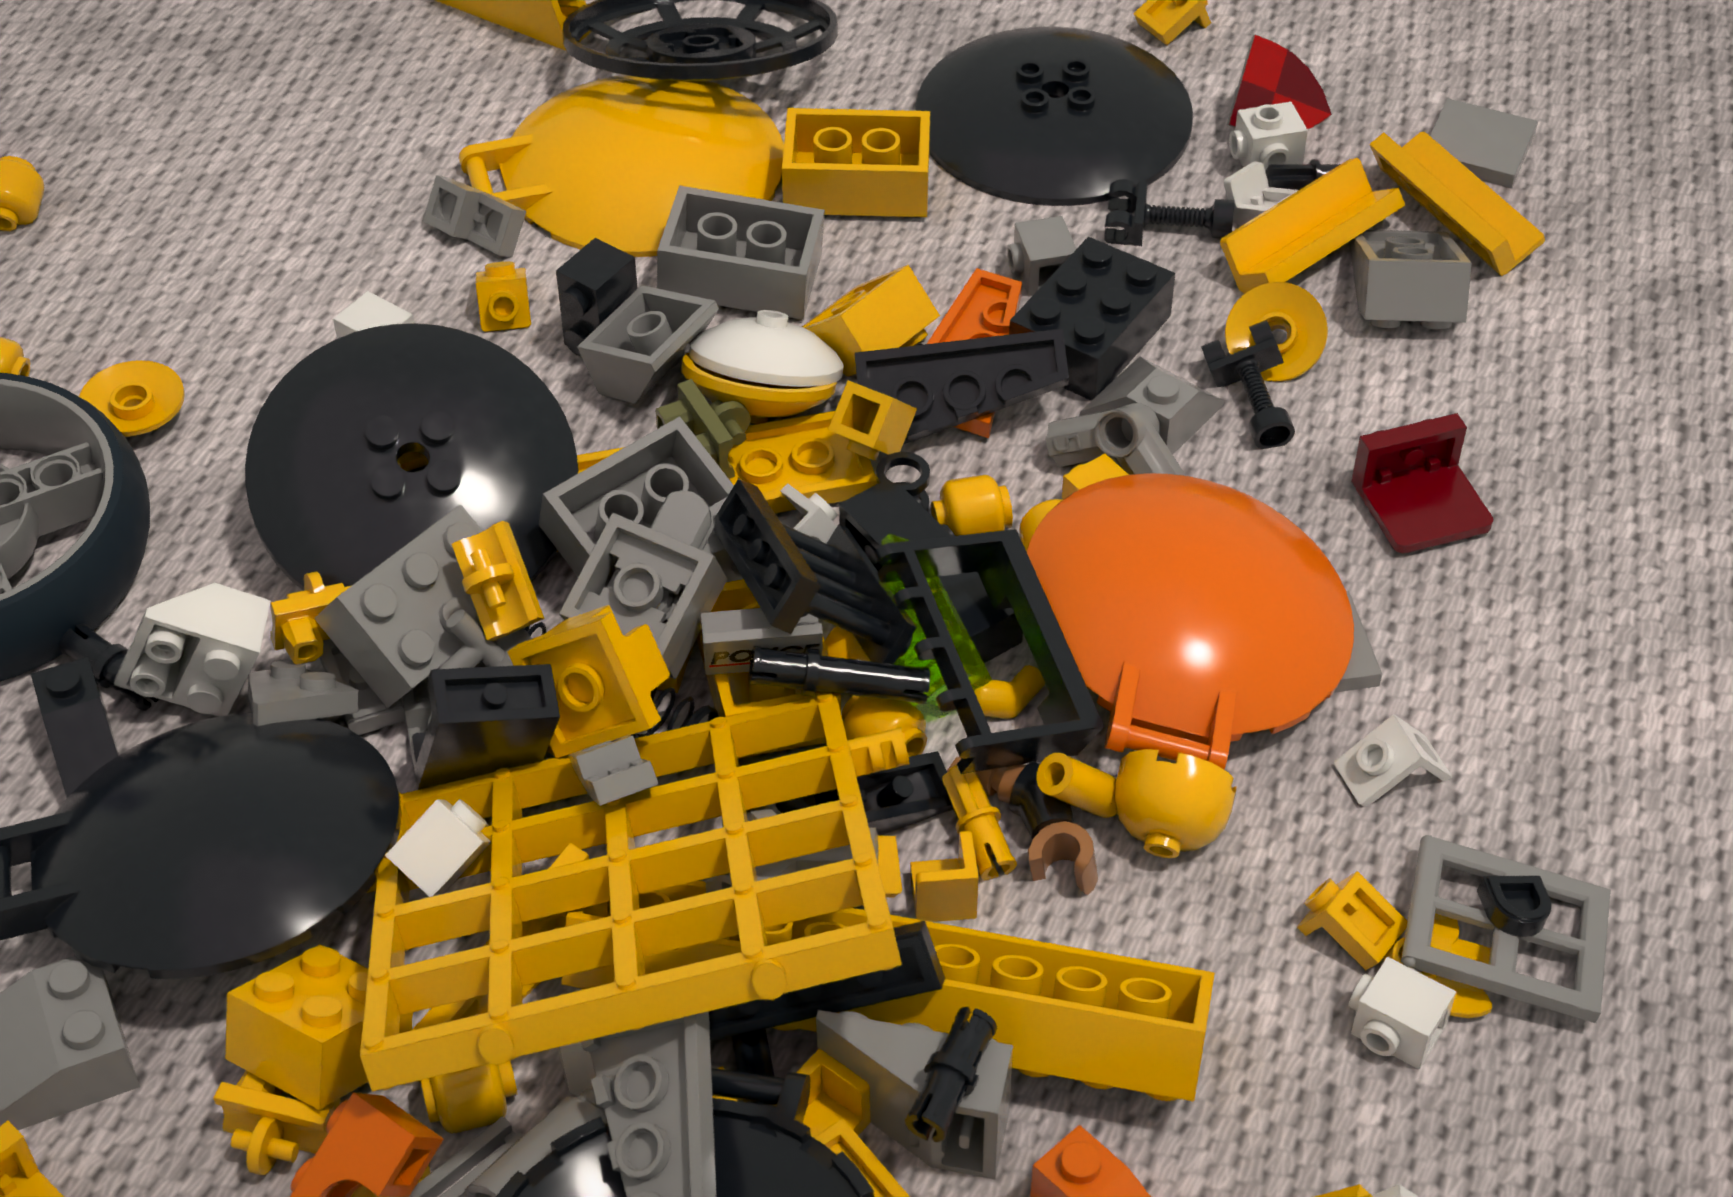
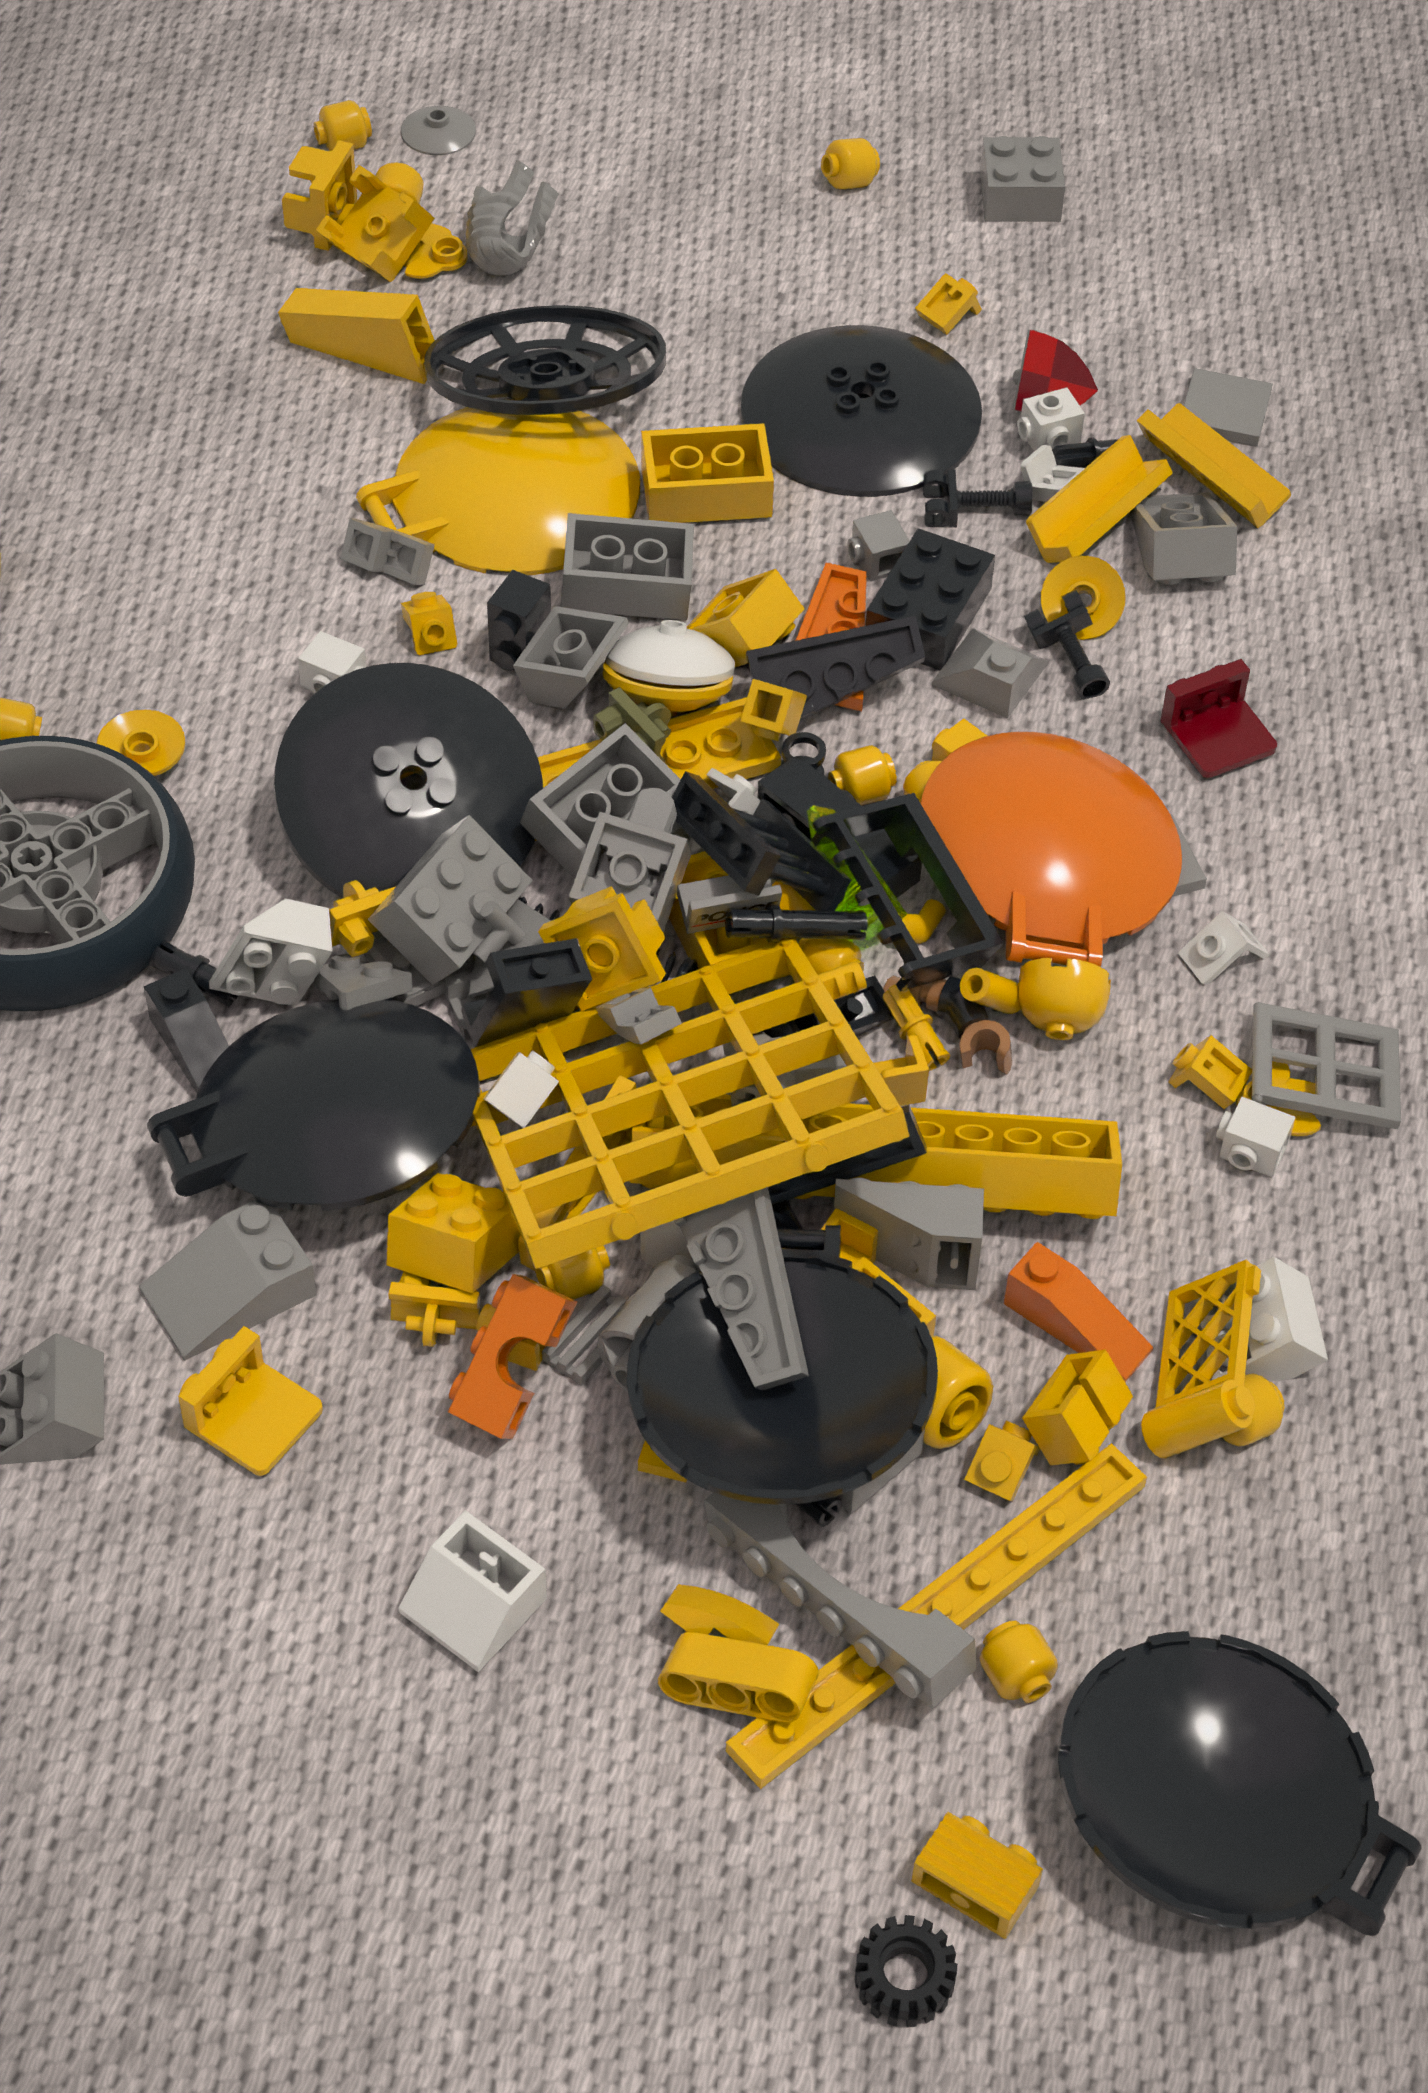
camera: 10 degrees left, 5 degrees up
(497, 581) = (515, 875): yellow hips -> none
(951, 1074) = (945, 1213): black pin -> none
(1097, 433) = (955, 701): light grey piece -> none
(1515, 903) = (1330, 1047): black tile -> none

